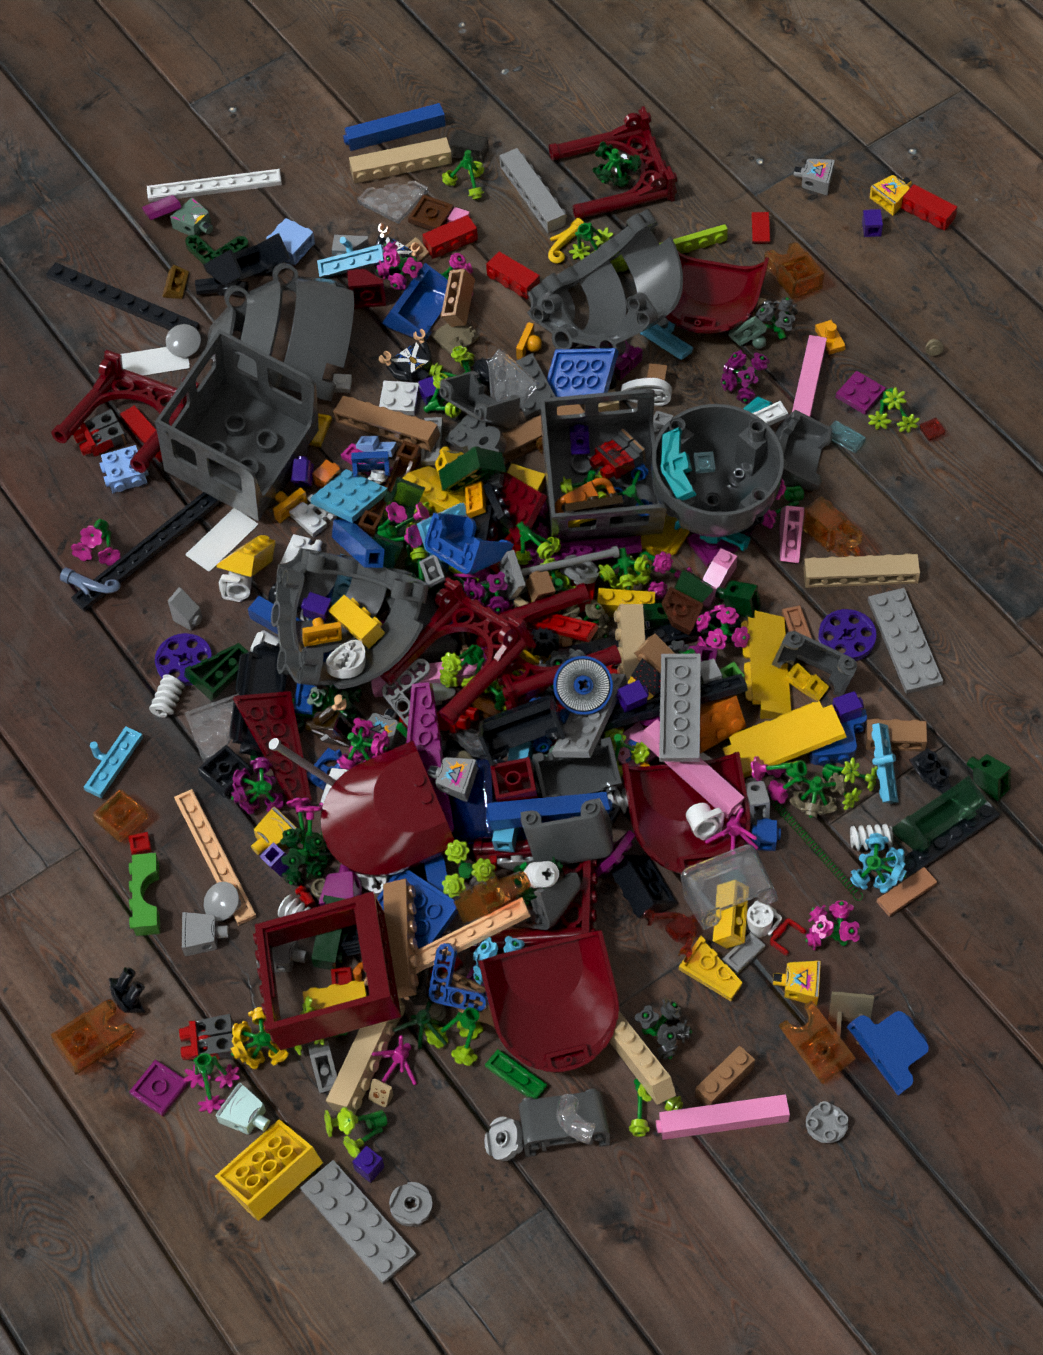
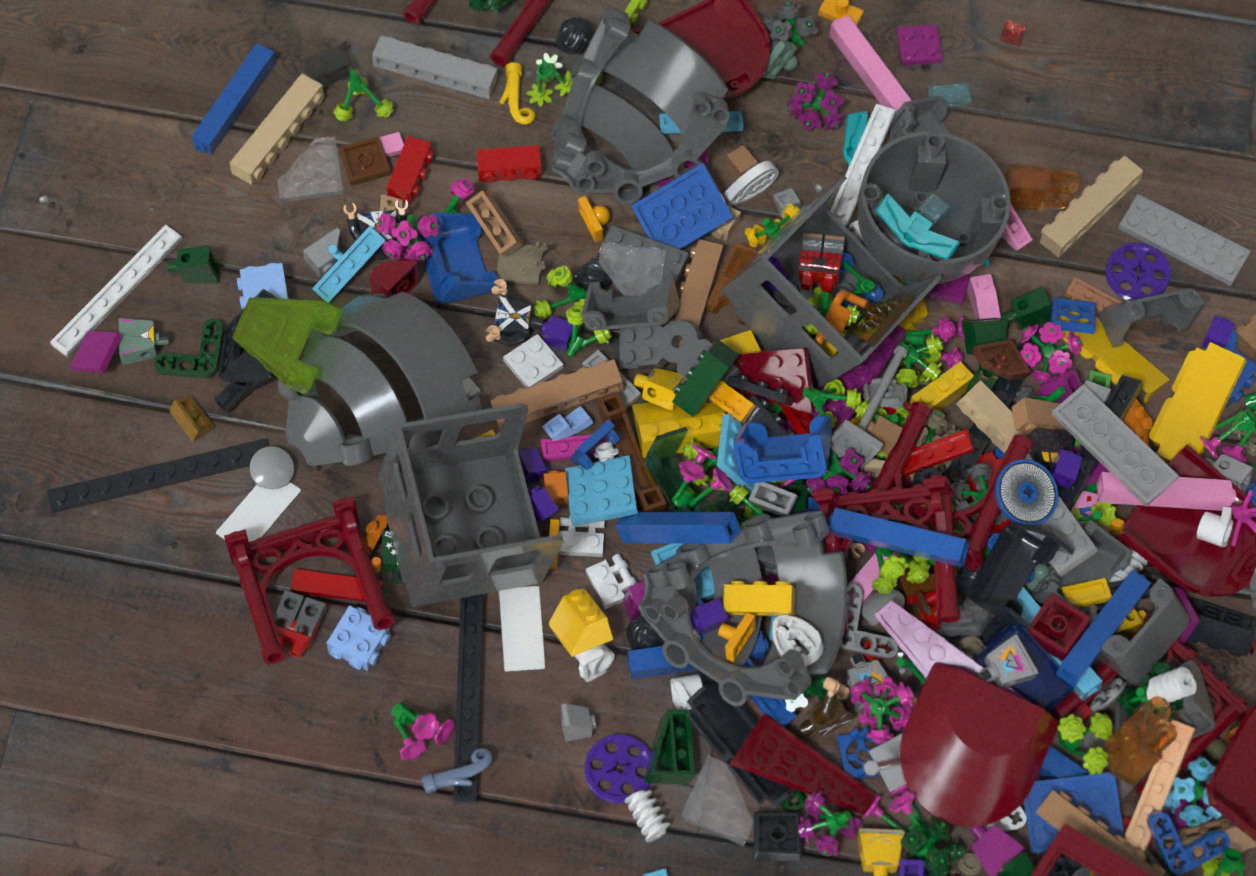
camera: 50 degrees left, 5 degrees up
(244, 251) = (277, 334): none -> clear neon green wedge
(268, 201) = (196, 265): none -> dark green torso
(324, 449) = (532, 465): none -> dark purple brick
(465, 642) = (898, 537): none -> blue brick
(565, 785) = (1087, 593): none -> yellow tile
(764, 611) = (1083, 308): none -> blue piece
(806, 683) = (1151, 341): yellow slope -> none
(893, 398) = (954, 31): lime plant -> none

